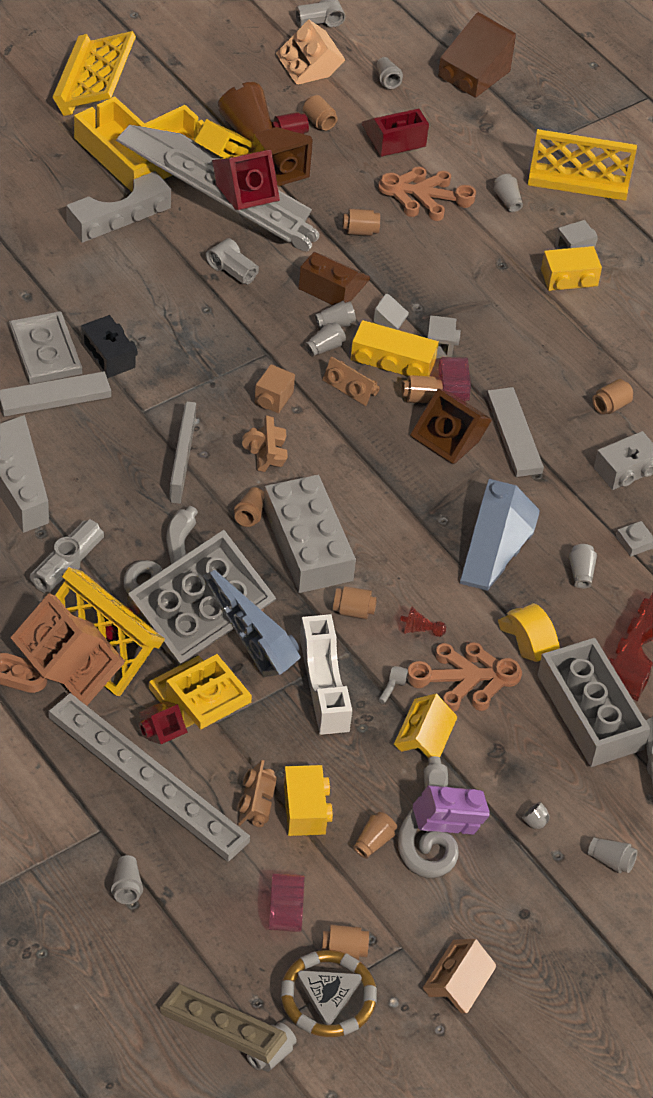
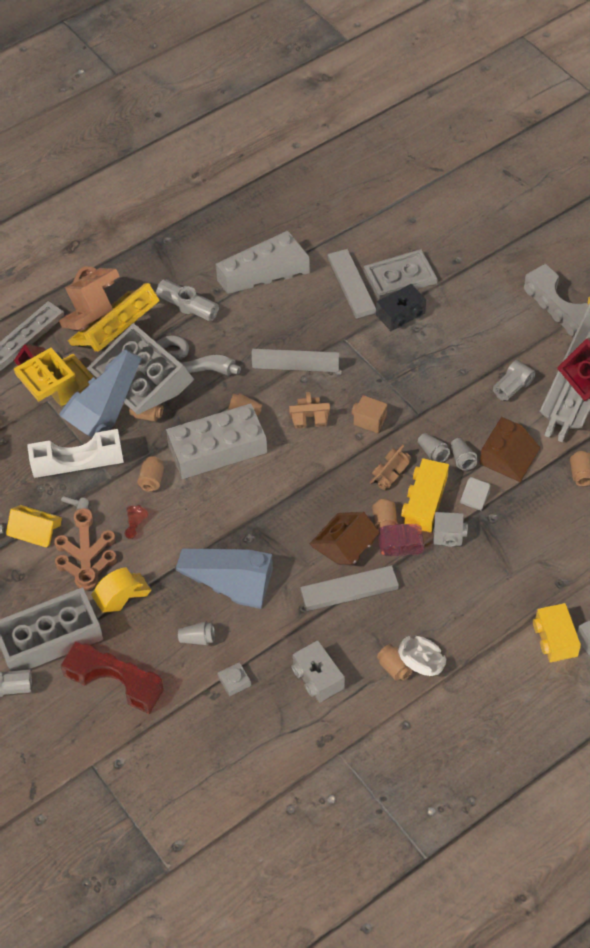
camera: 95 degrees right, 5 degrees up
(608, 372) = (422, 655): none -> white tile

